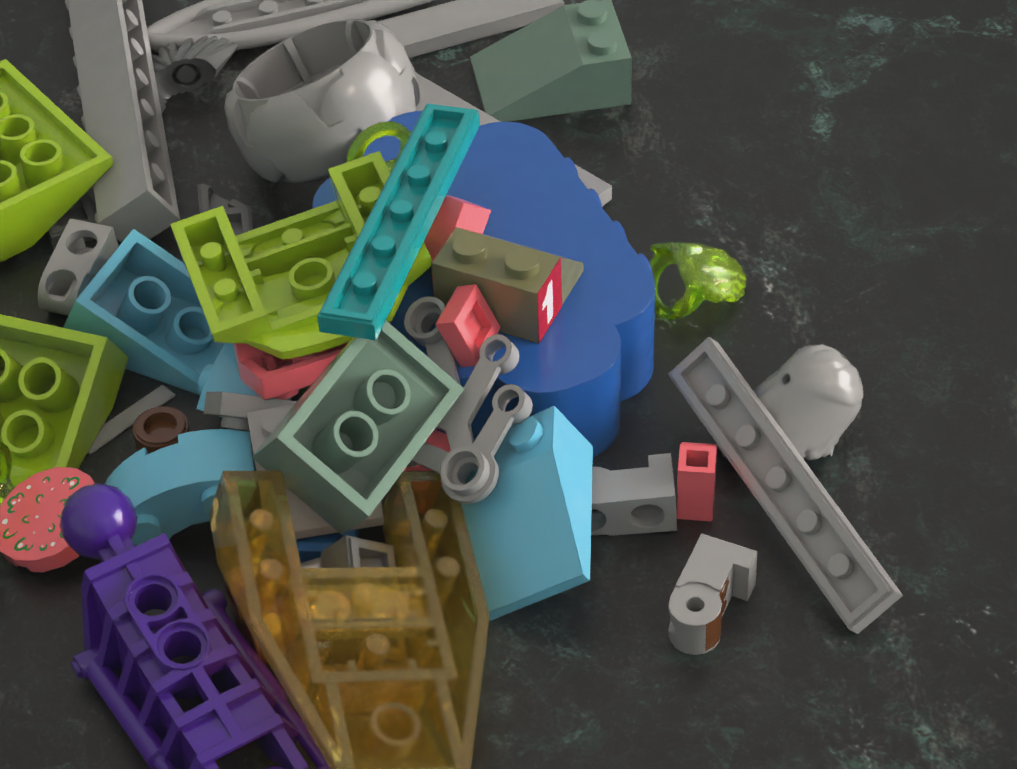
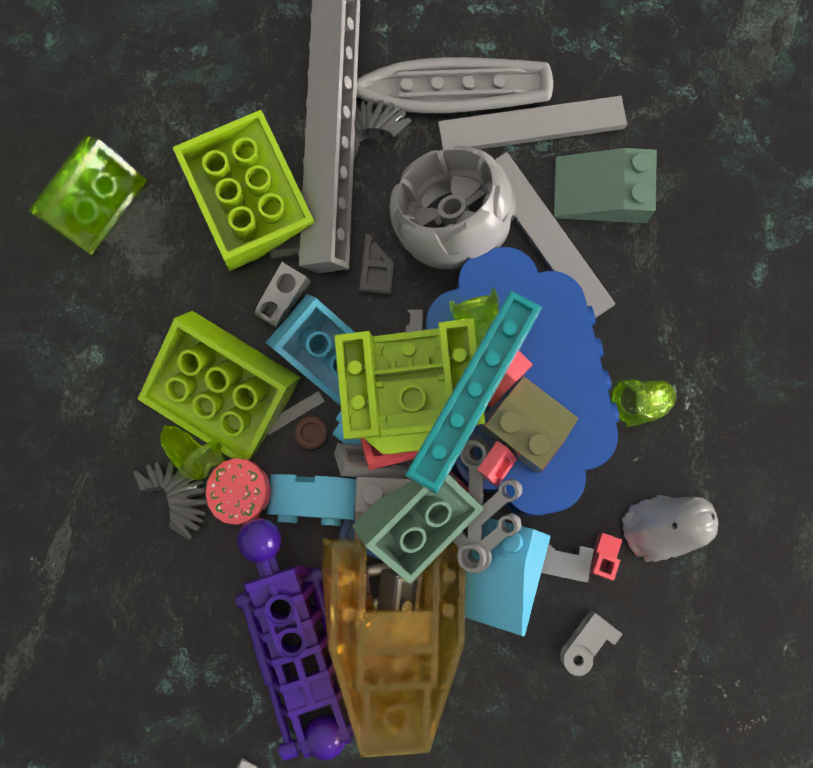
camera: 10 degrees right, 35 degrees up
(785, 486) = (650, 583): light grey tile -> none

